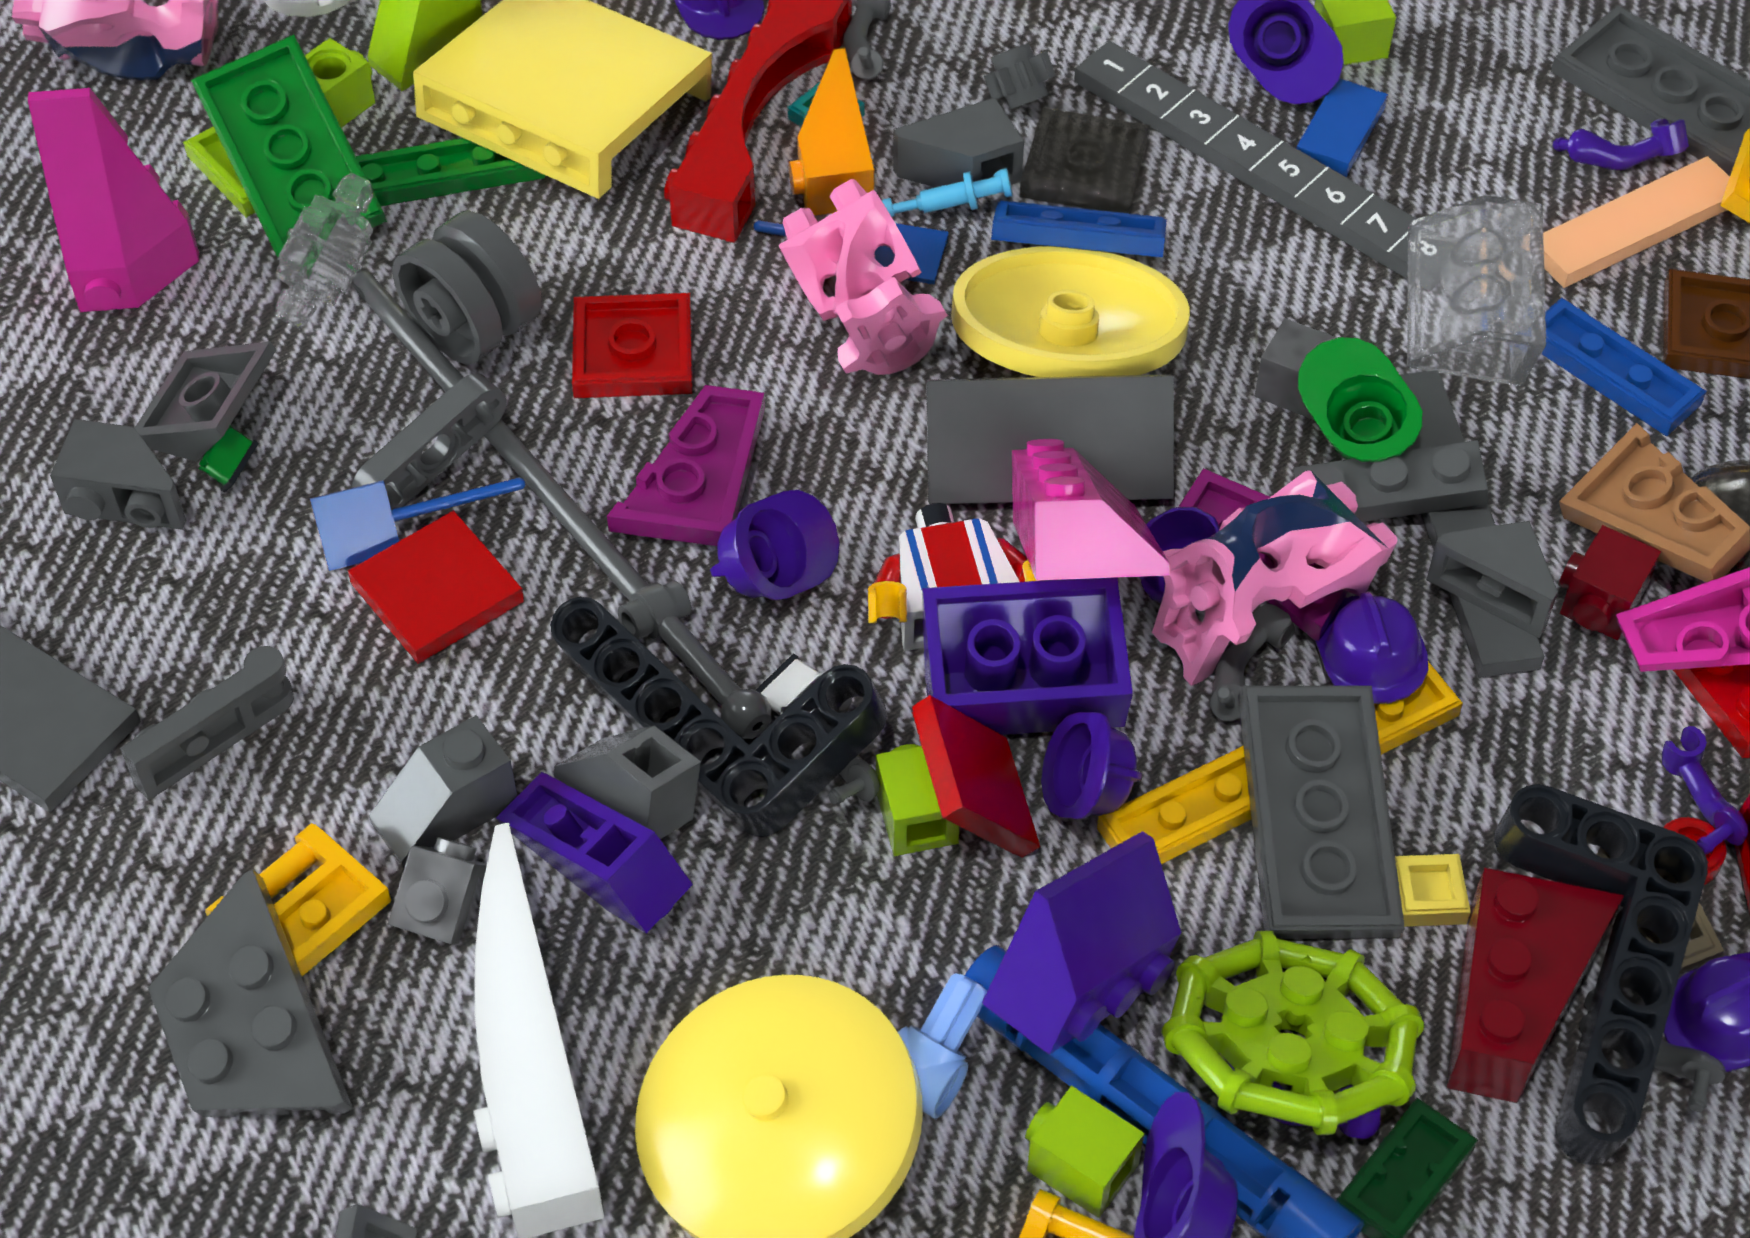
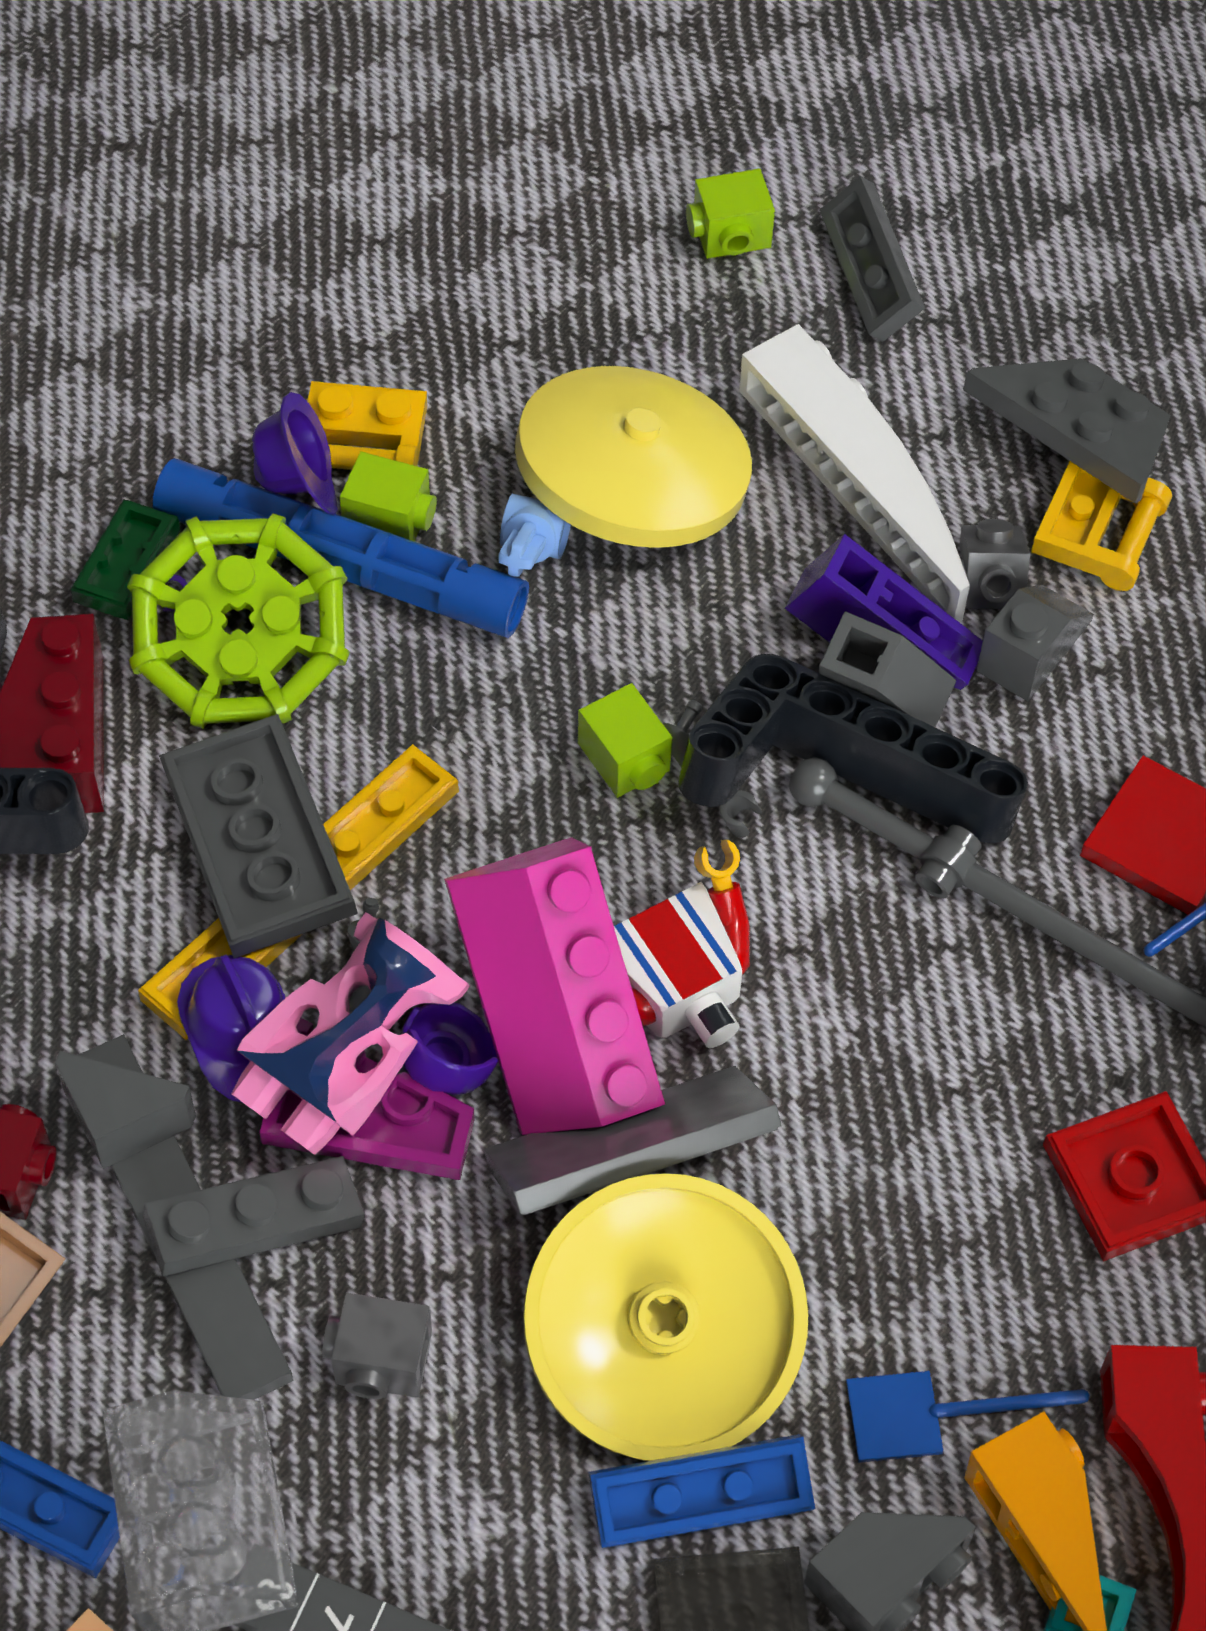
camera: 160 degrees right, 5 degrees up
(700, 472) = (980, 1024): magenta wing -> none
(778, 546) = (860, 939): dark purple piece -> none
(788, 683) = (788, 830): white piece -> none
(883, 320) = (934, 1337): bright pink hips -> none
(954, 194) = (855, 1497): medium azure piece -> none
(974, 777) = (576, 749): red tile -> none
(1028, 652) = (611, 817): dark purple slope -> none
(1088, 767) = (468, 795): dark purple piece -> none
(1088, 947) = (422, 590): dark purple slope -> none
(1359, 400) = (303, 1273): green piece -> none
(1432, 890) = (142, 807): light yellow tile -> none

